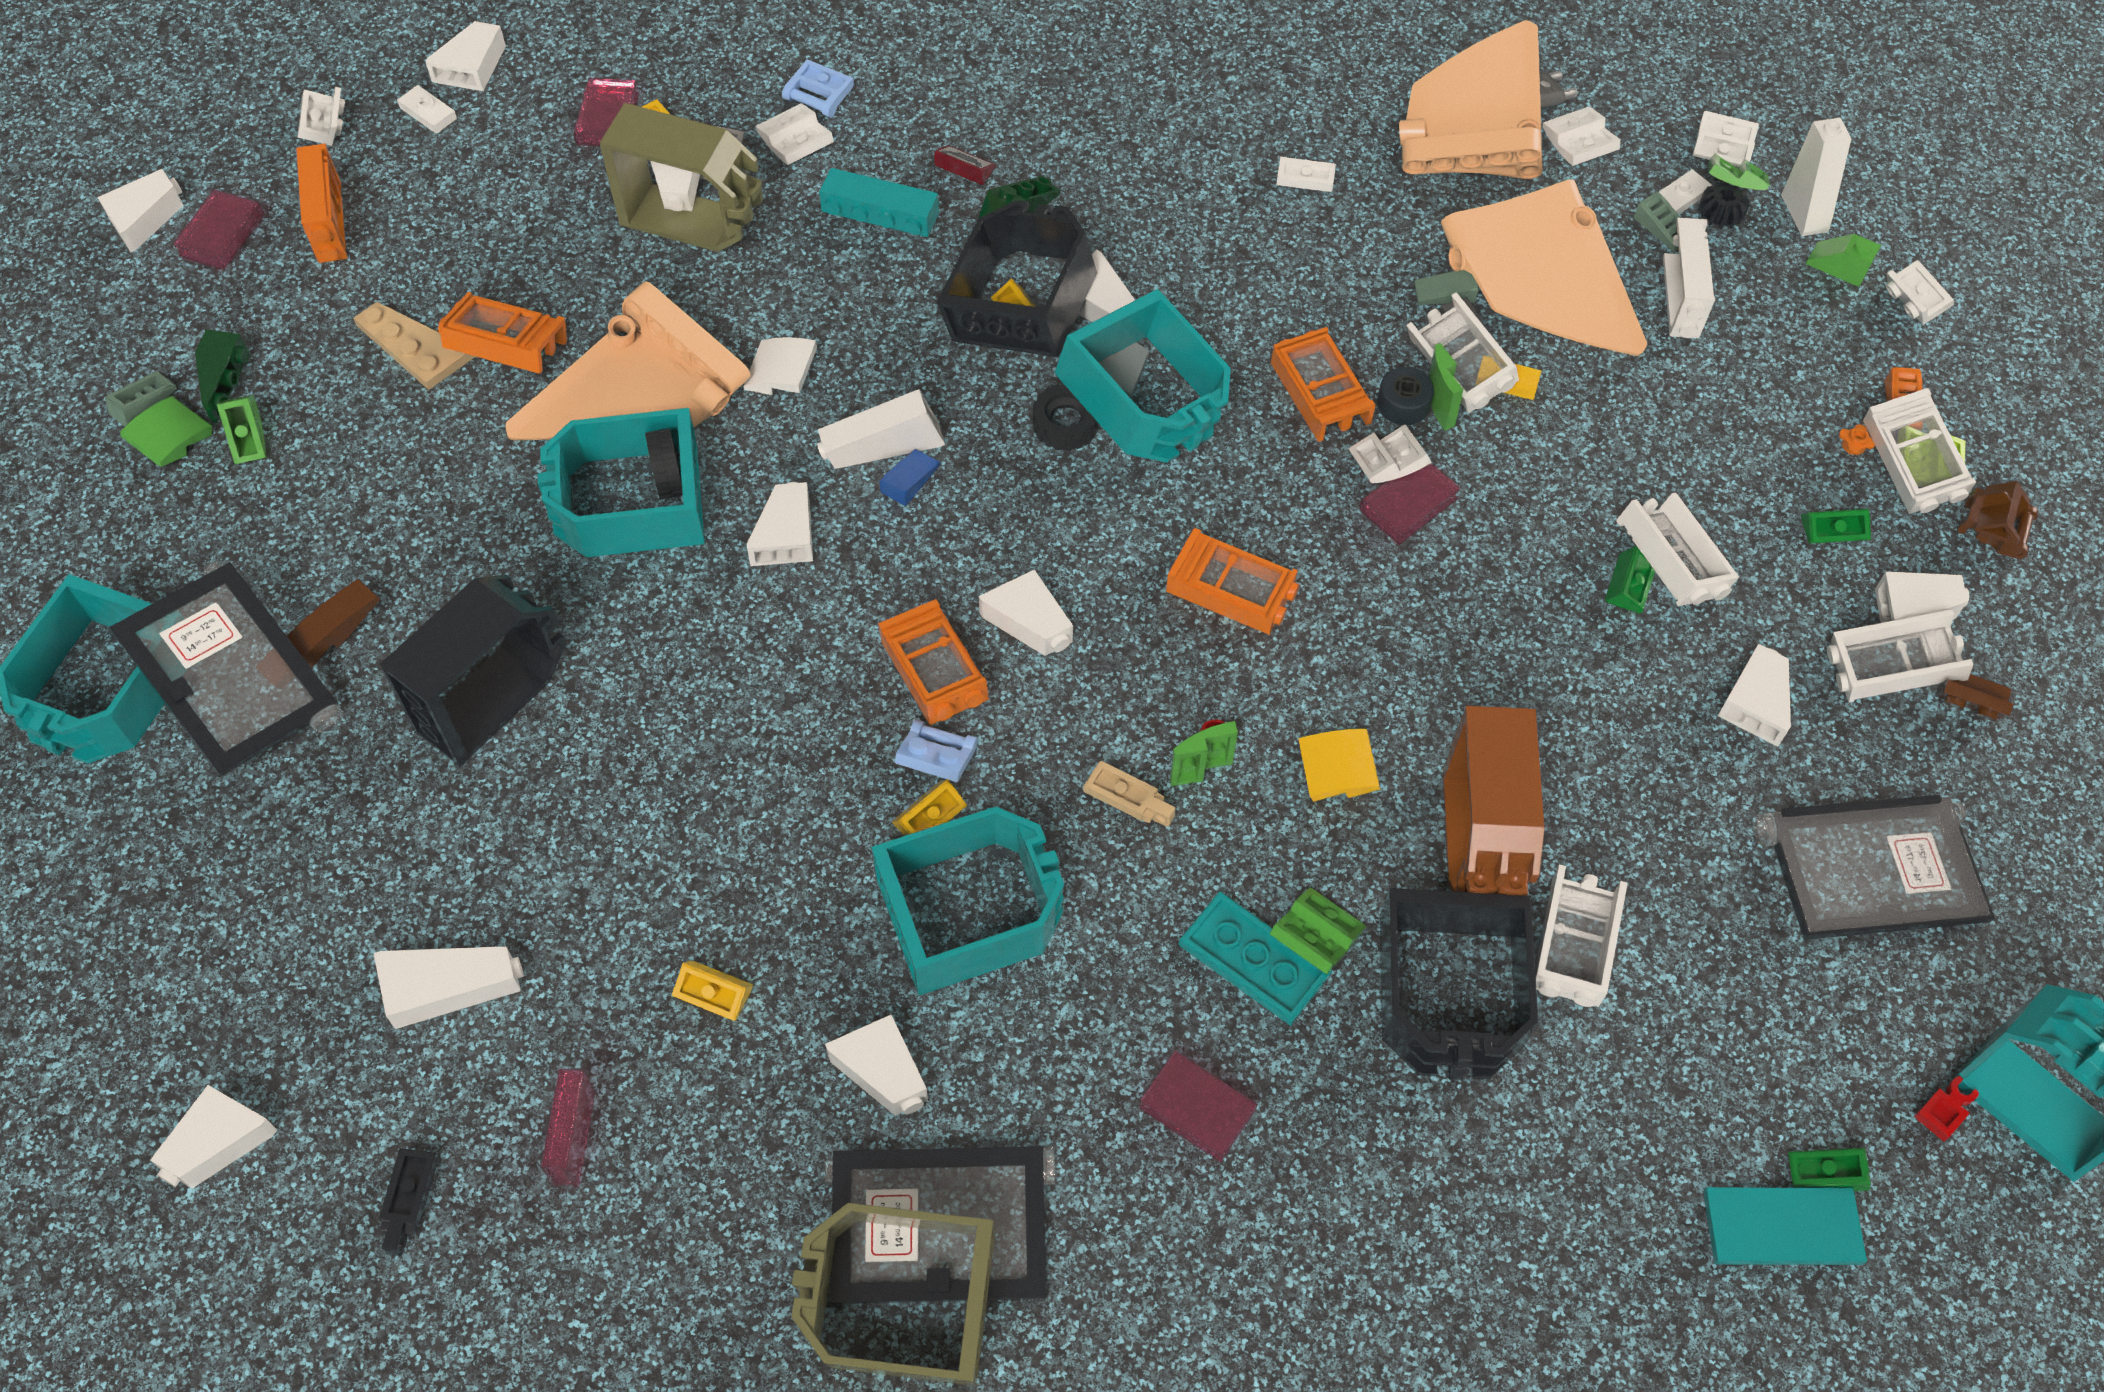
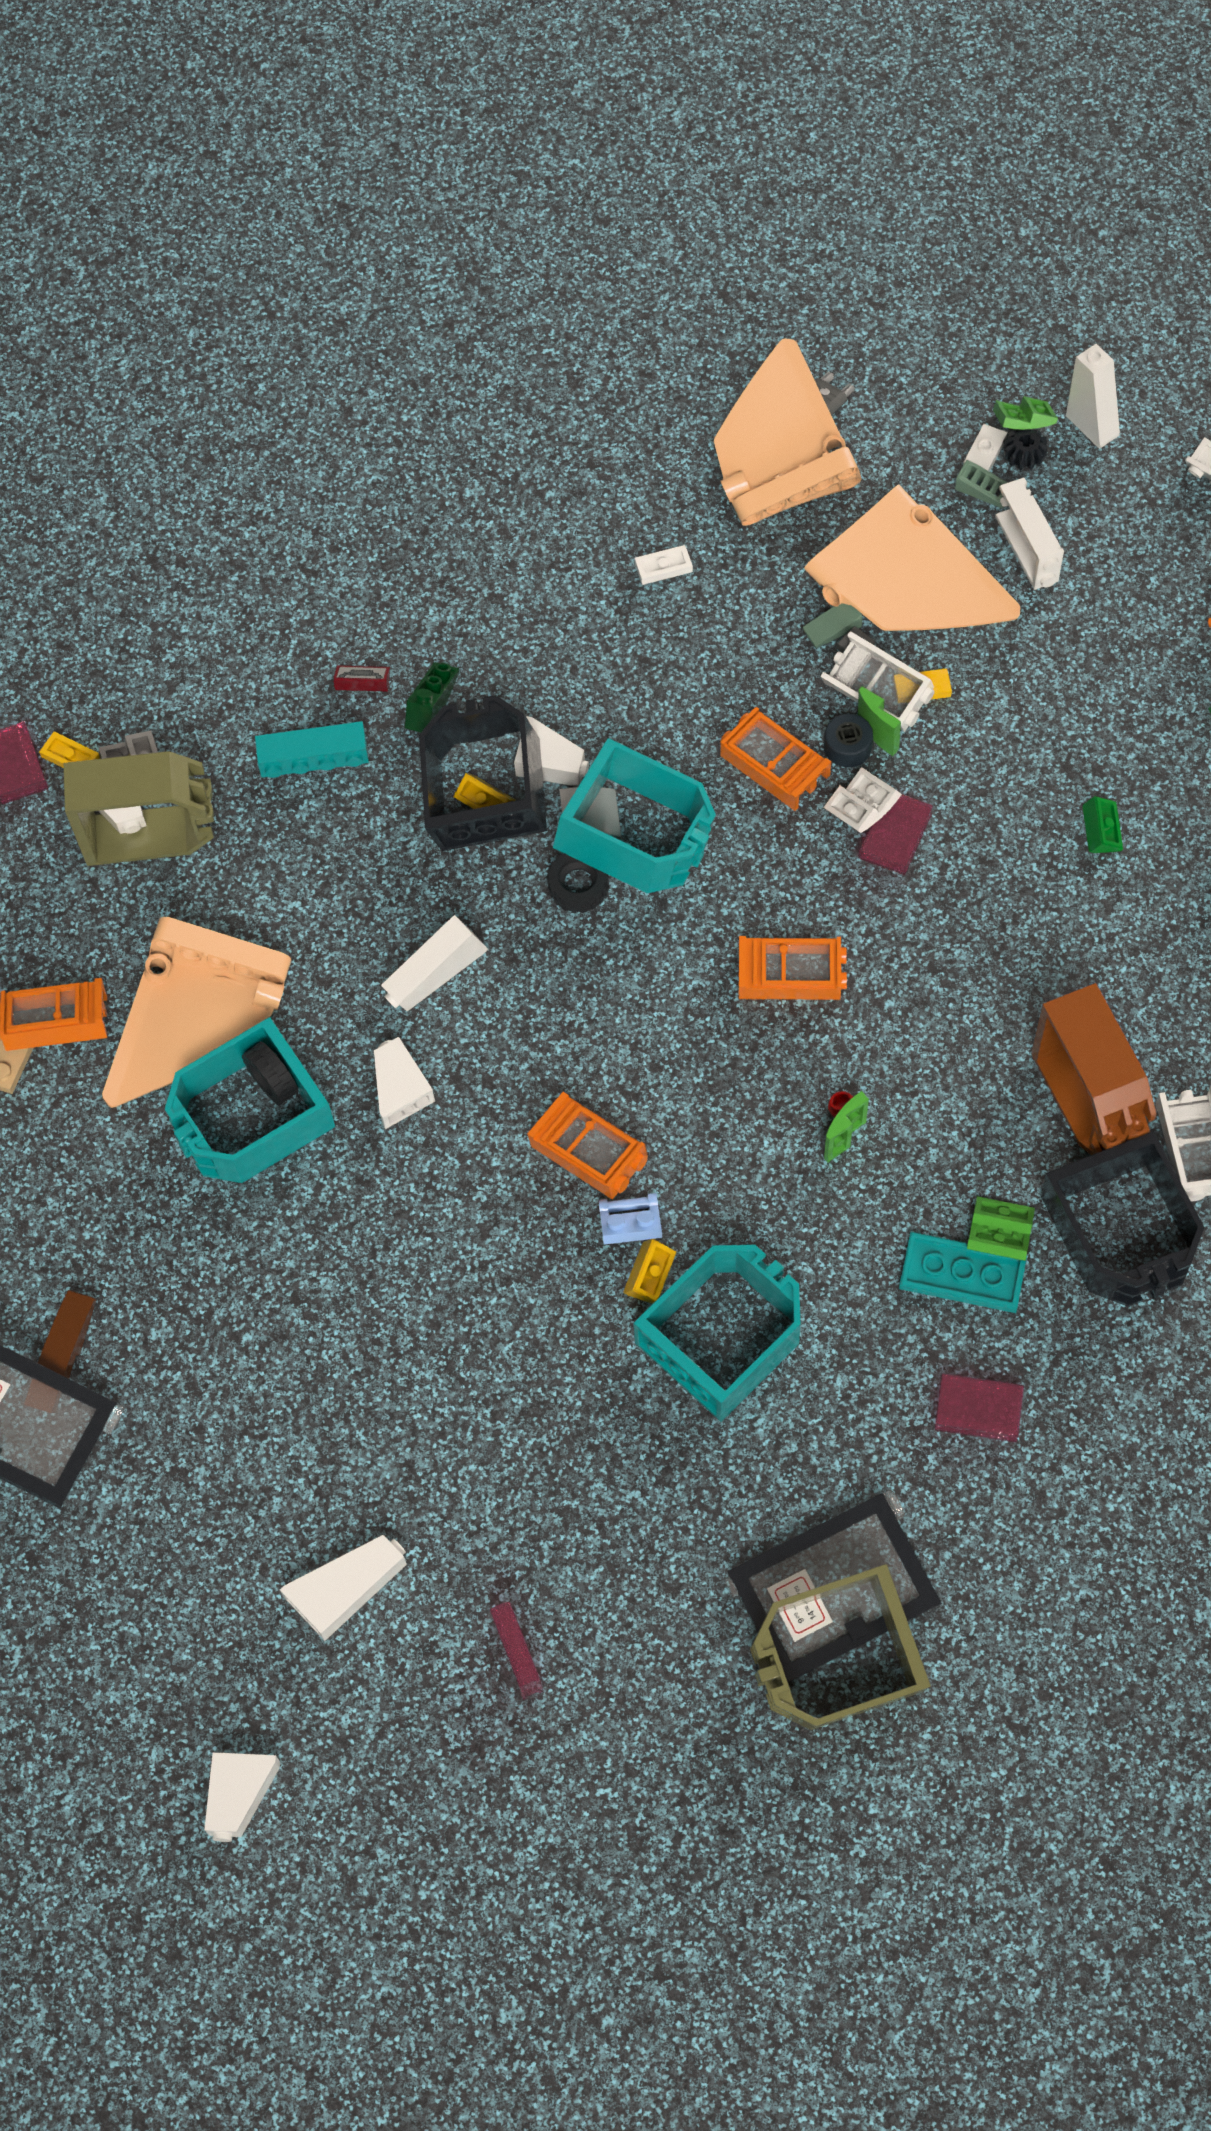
camera: 20 degrees left, 5 degrees up
(406, 1198) = (418, 1761): black hinge -> none
(453, 643) = (226, 1321): black container -> none
(711, 989) = (558, 1492): yellow slope -> none
(781, 365) = (310, 938): white slope -> none
(794, 134) = (194, 712): white slope -> none
(820, 81) = (191, 650): light blue plate -> none
(880, 1065) = (726, 1489): white slope -> none
(908, 476) = (475, 991): blue slope -> none
(1028, 613) = (642, 1069): white slope -> none
(1128, 794) = (800, 1185): tan hinge -> none
(1339, 763) = (950, 1085): yellow slope -> none
(1581, 135) = (876, 428): white slope -> none
(1679, 550) = (1130, 785): white door -> none
(1726, 137) = (997, 381): white slope -> none
(1844, 257) = (1144, 457): bright green slope -> none

